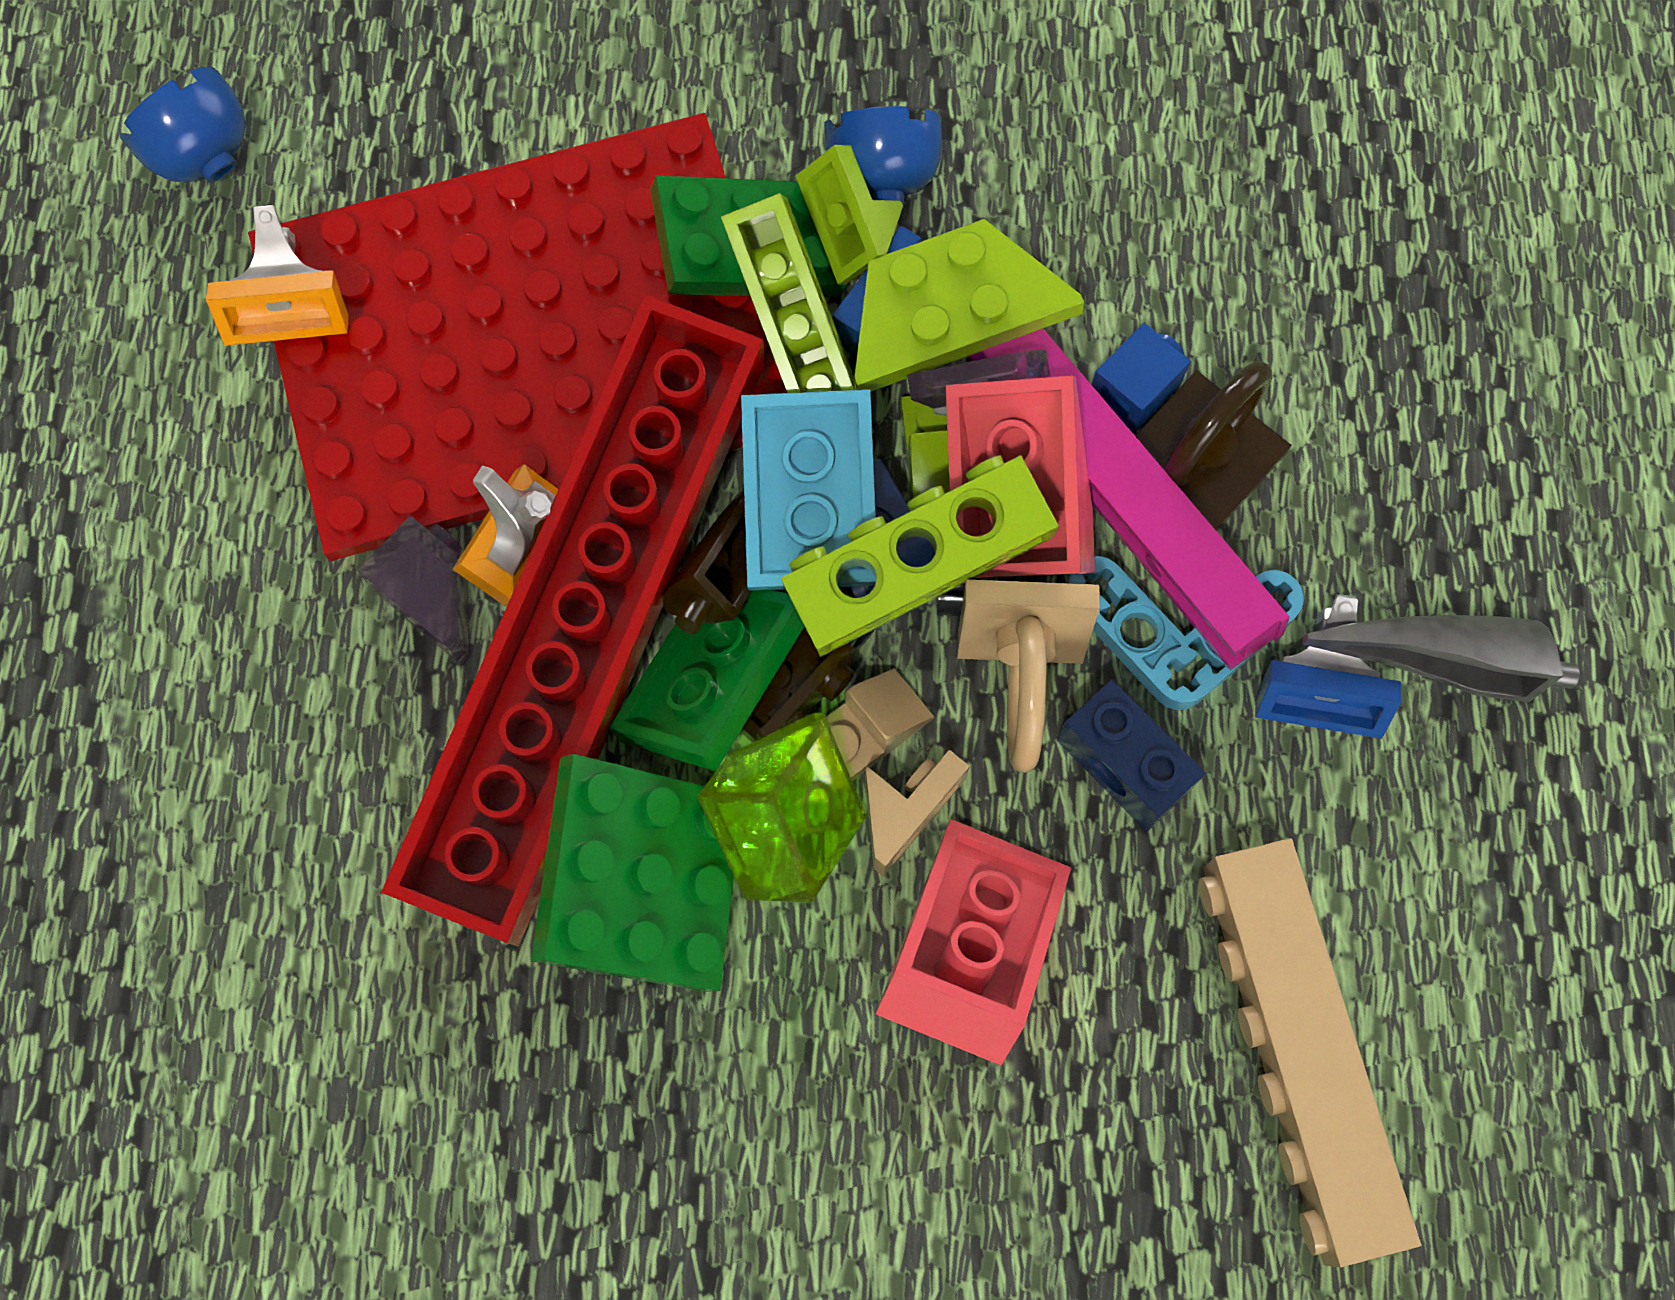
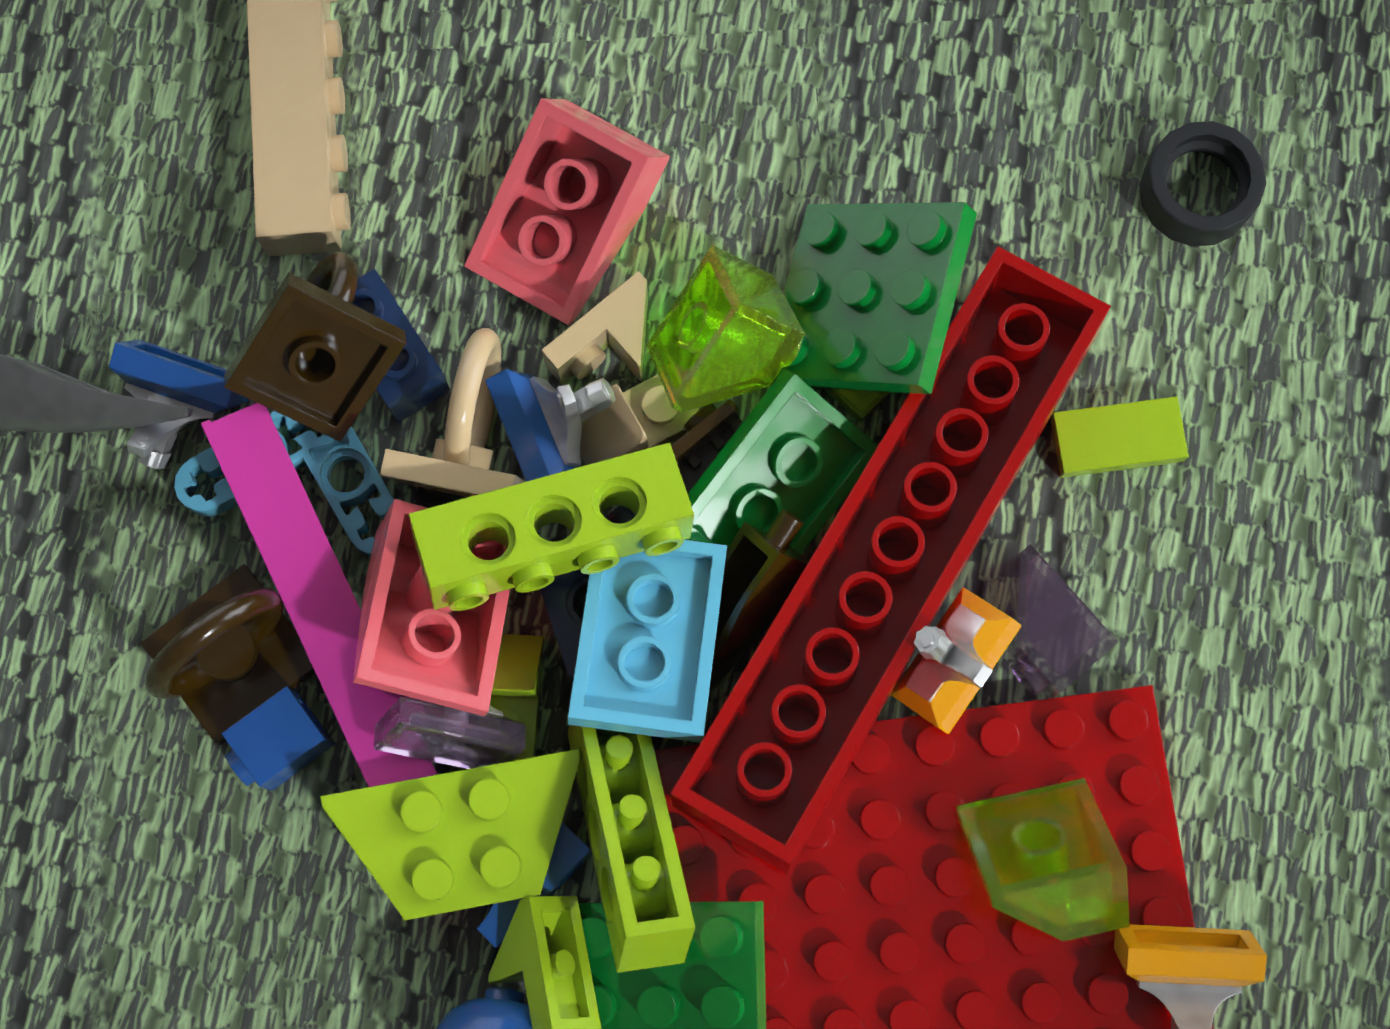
camera: 170 degrees left, 5 degrees up
(240, 1072) = (1230, 148): none -> black tyre
(365, 794) = (1119, 437): none -> lime tile
(415, 365) = (1049, 860): none -> clear neon green slope
(952, 698) = (545, 421): none -> piece
(1193, 697) = (316, 350): none -> dark brown tile

